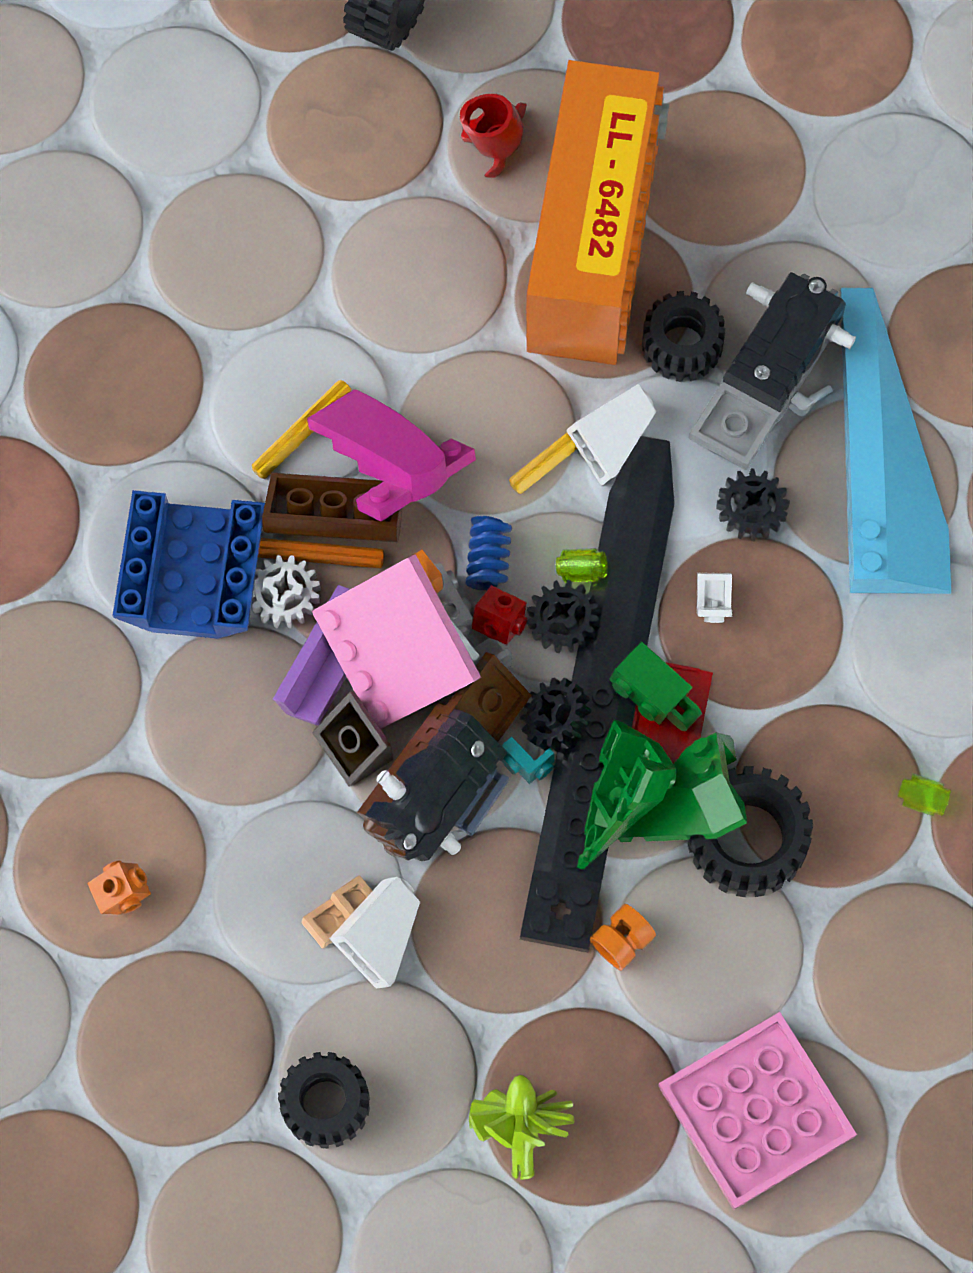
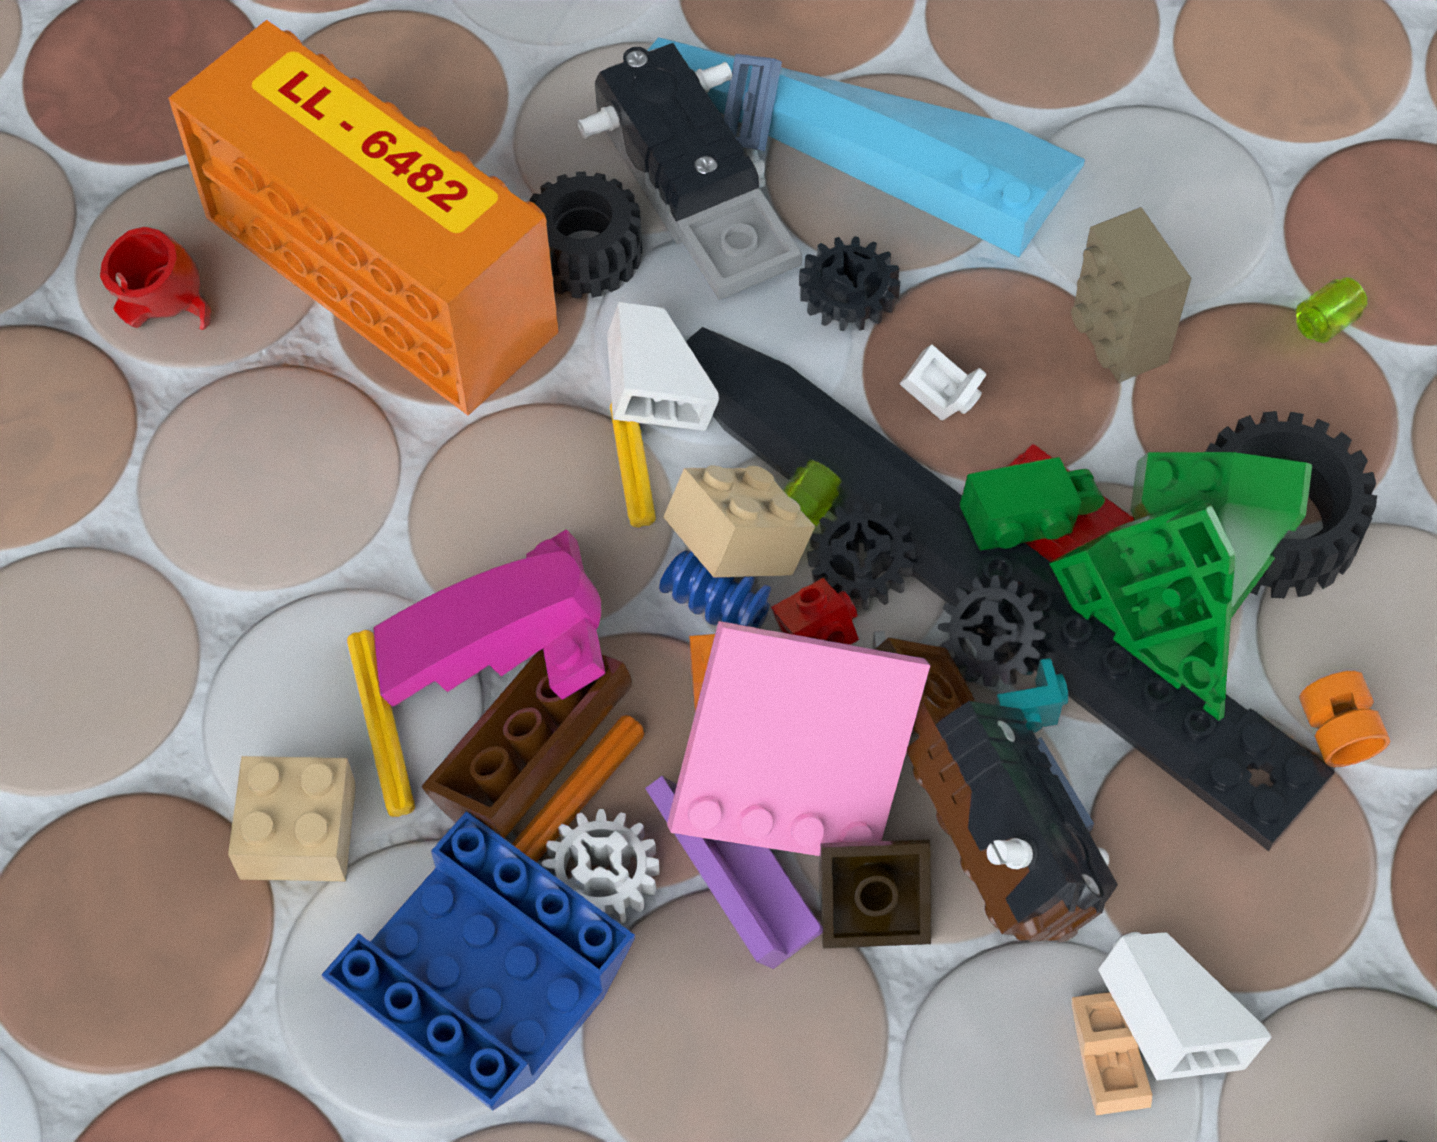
camera: 60 degrees left, 10 degrees down
(215, 422) = (292, 818): none -> tan brick
(530, 535) = (738, 521): none -> tan brick
(832, 664) = (1130, 294): none -> dark tan brick
(843, 374) = (757, 102): none -> sand blue tile

